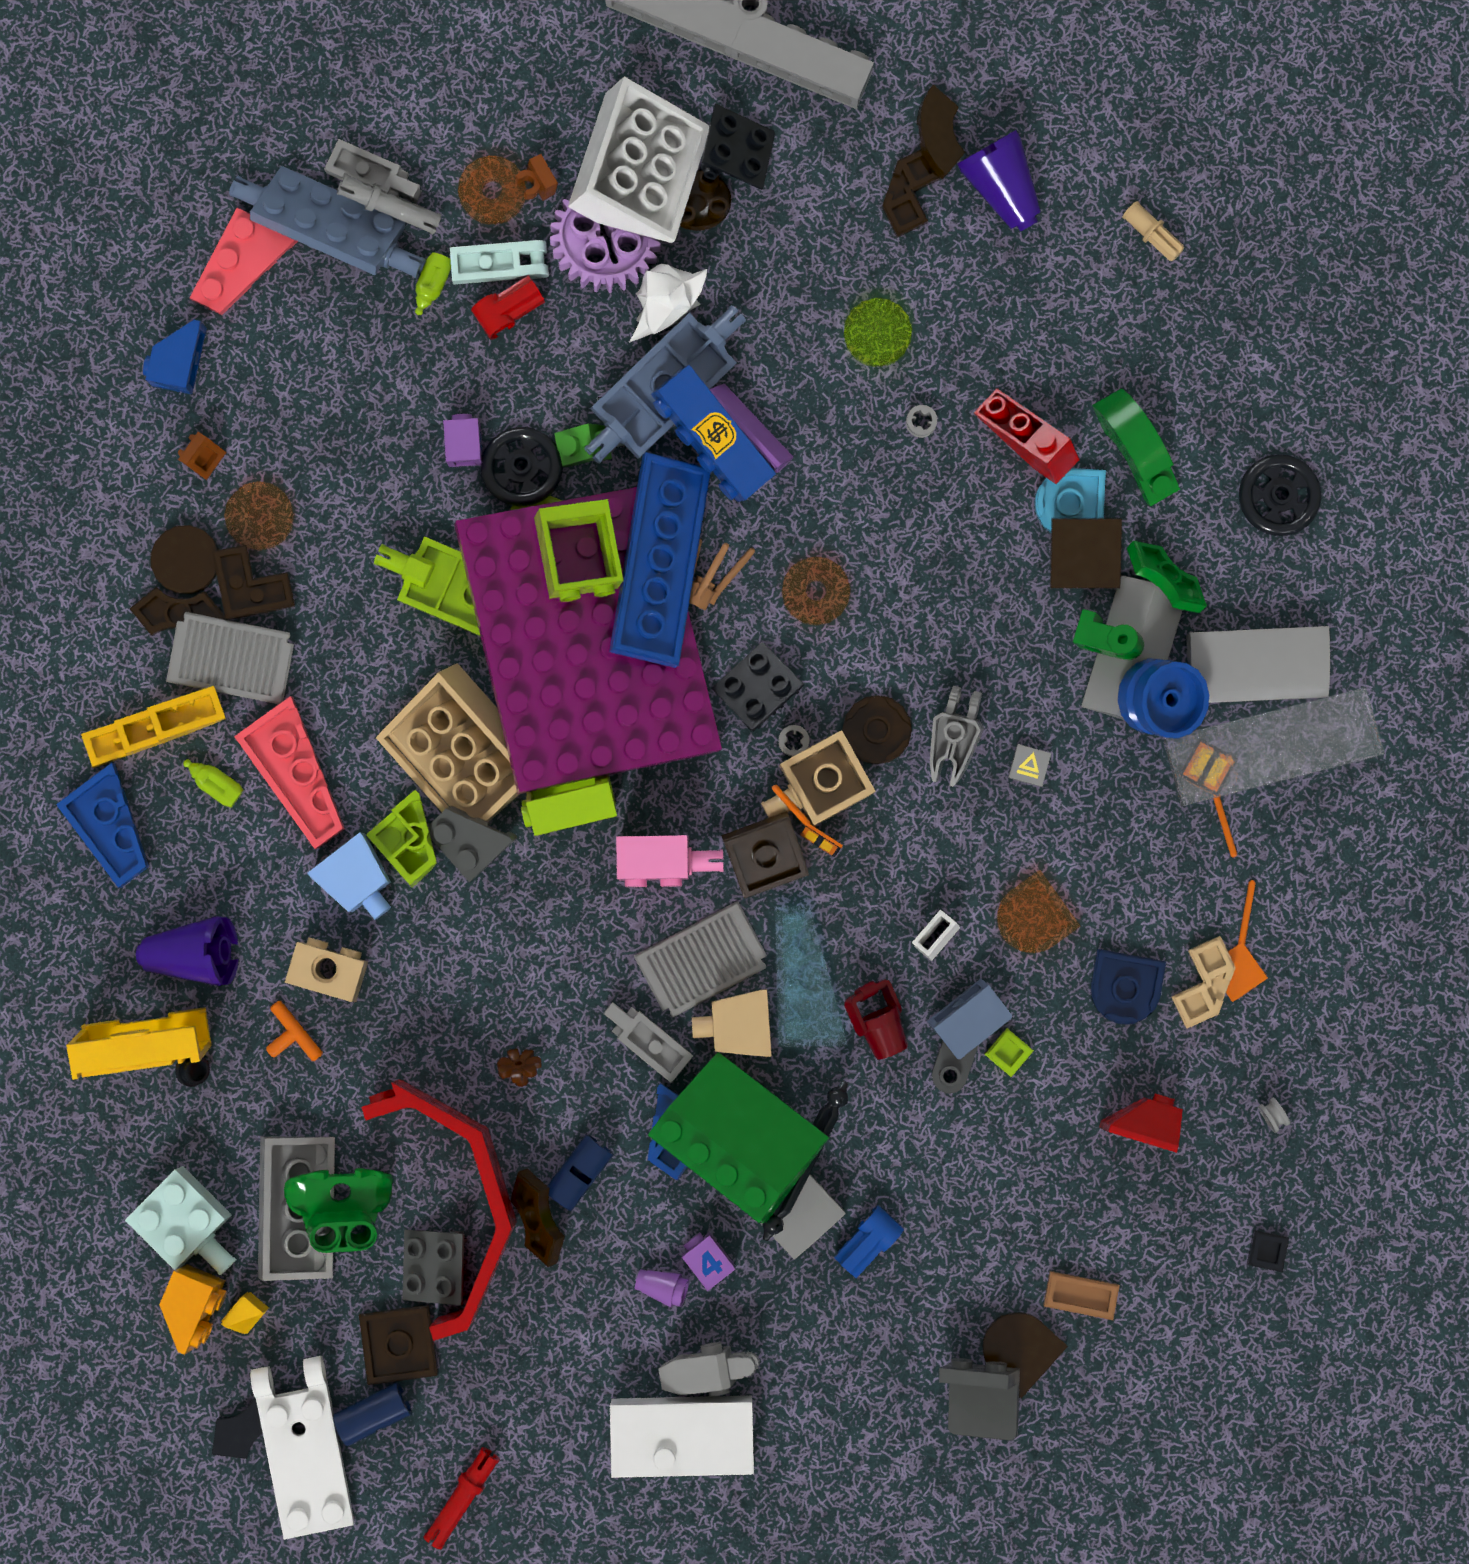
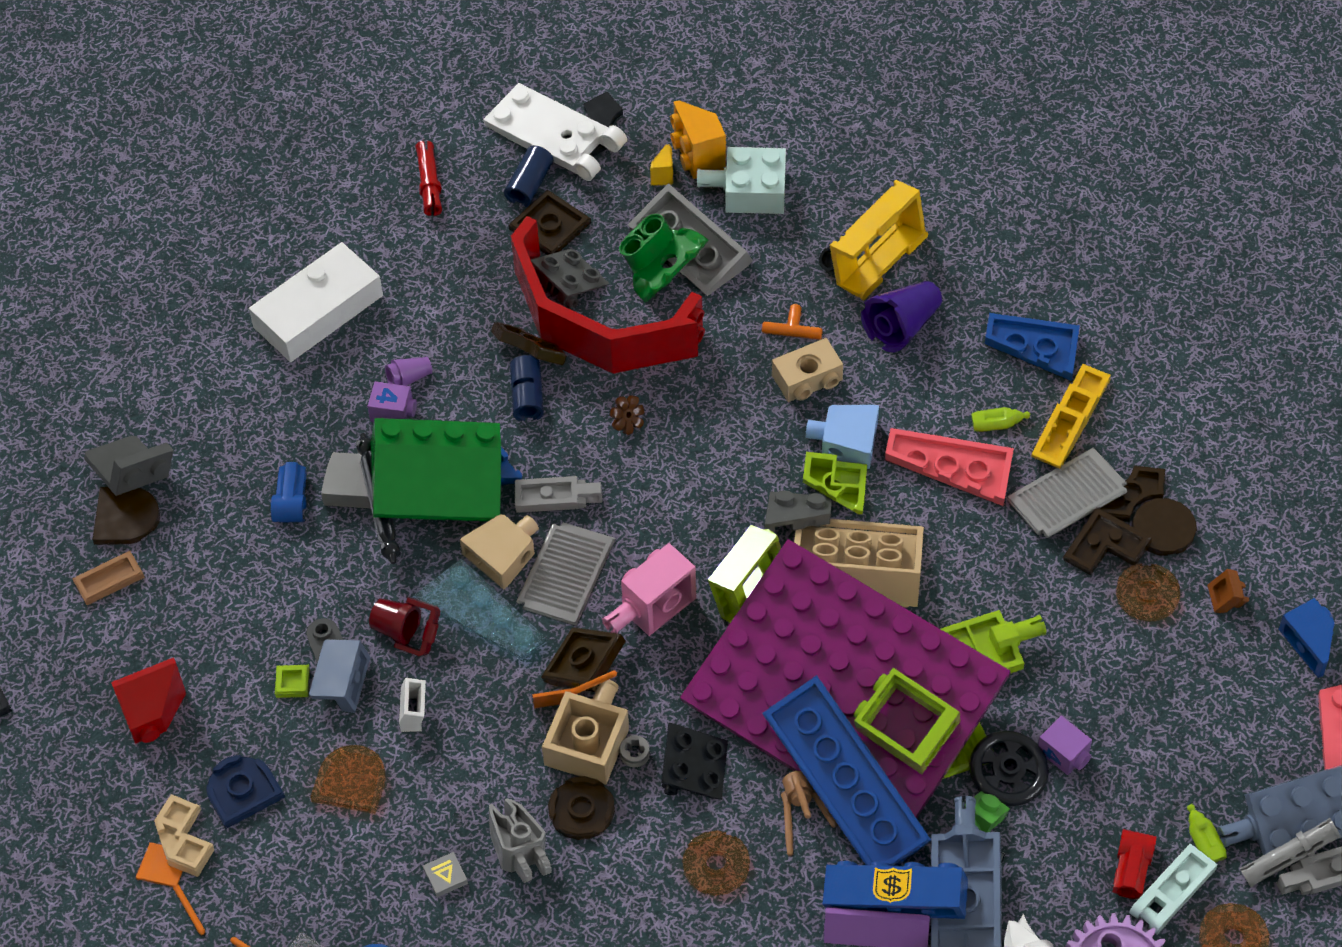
camera: 140 degrees right, 30 degrees down
(707, 1371) = (332, 345): light grey hinge -> none
(1274, 1115) = (56, 787): light grey bush -> none

